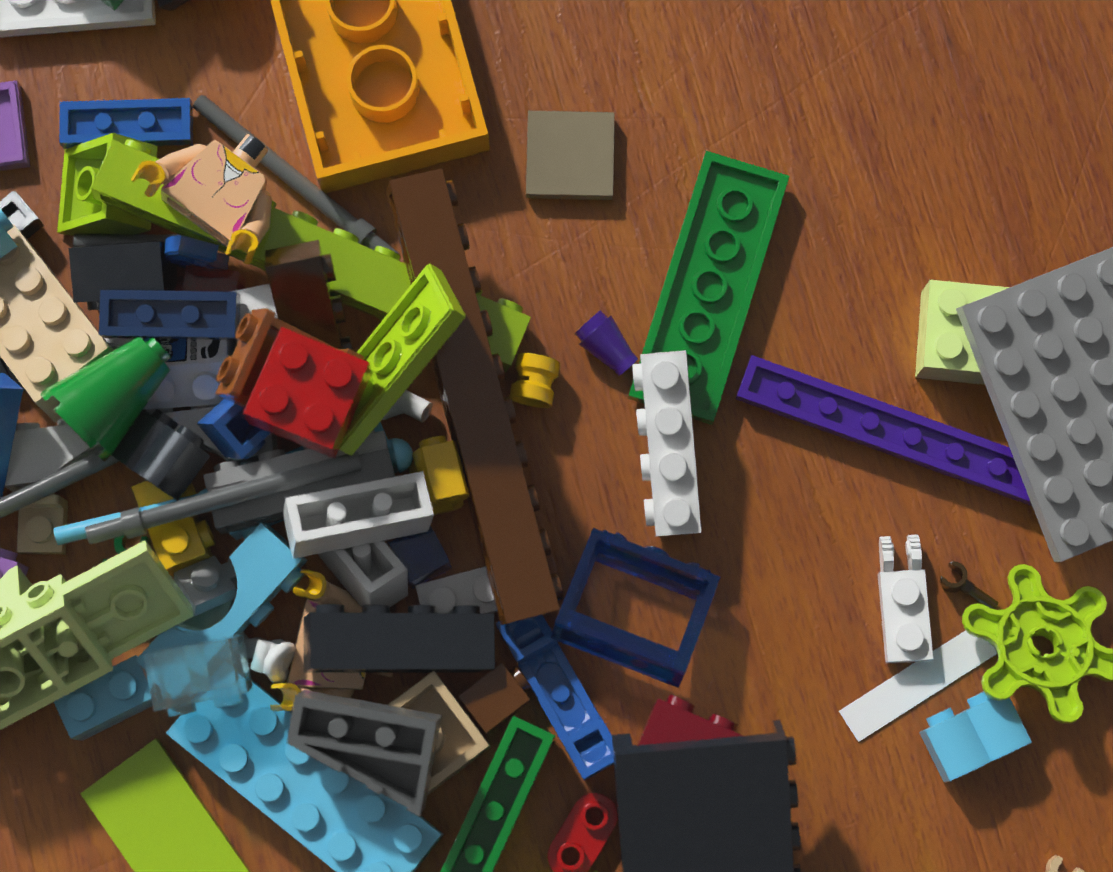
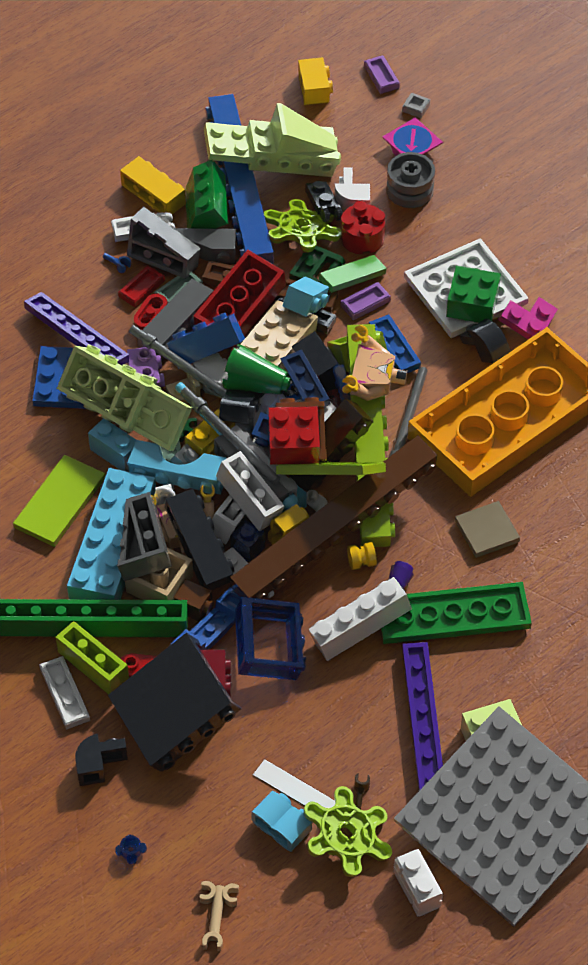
camera: 65 degrees right, 25 degrees down
(198, 674) = (142, 460): clear light blue brick -> none
(904, 604) = (336, 764): white hinge -> none

